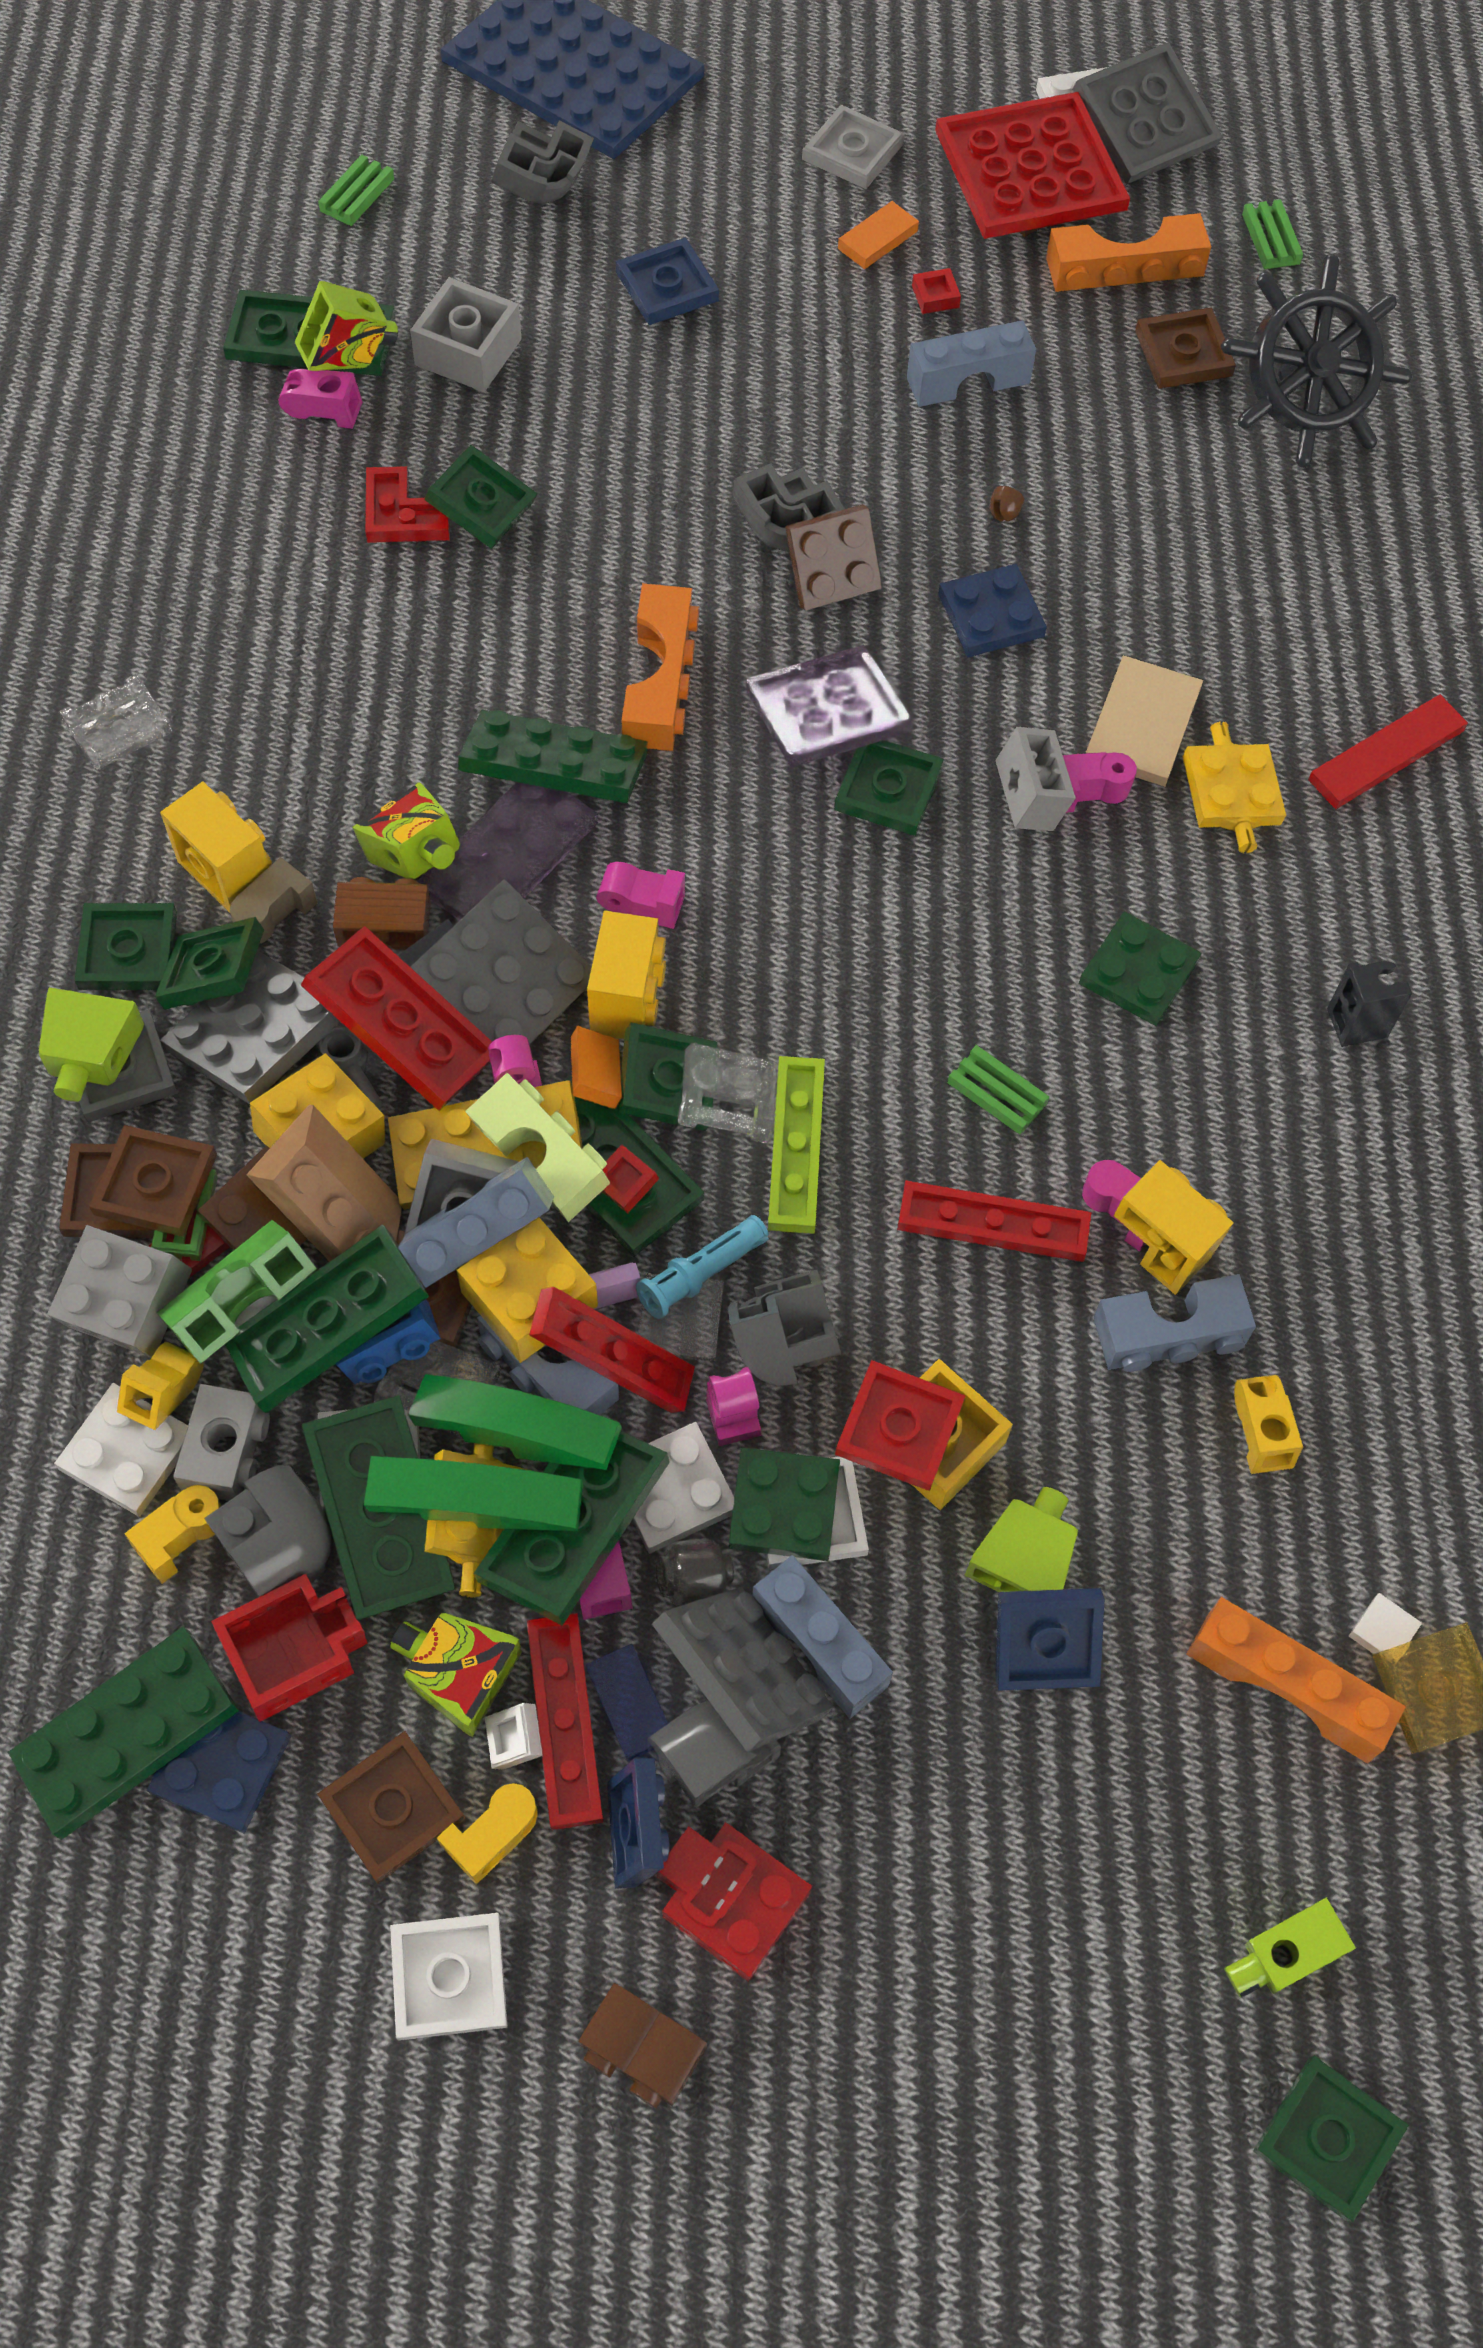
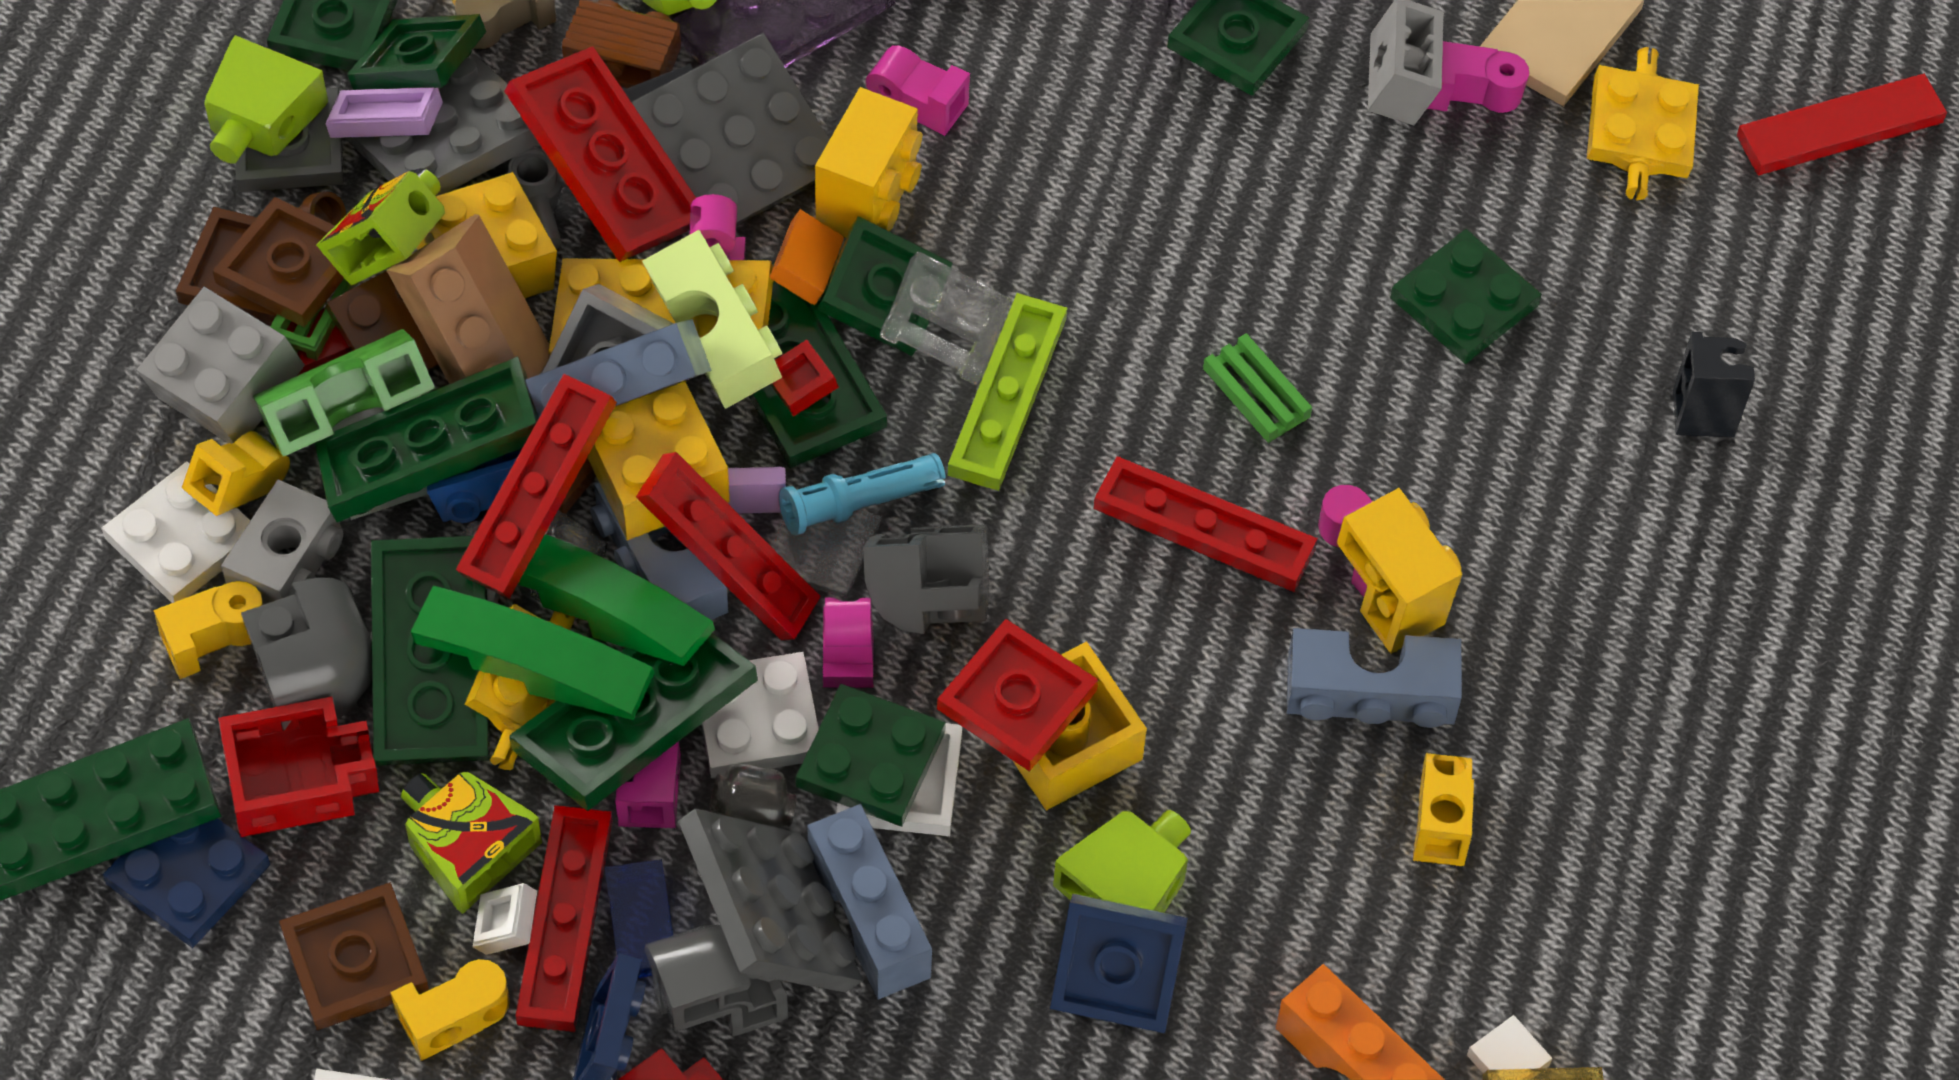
camera: 15 degrees right, 5 degrees down
(170, 1119) = (325, 206): none -> reddish brown hinge
(197, 1024) = (384, 112): none -> lavender tile
(232, 1133) = (401, 214): none -> lime torso
(436, 1342) = (536, 486): none -> red plate

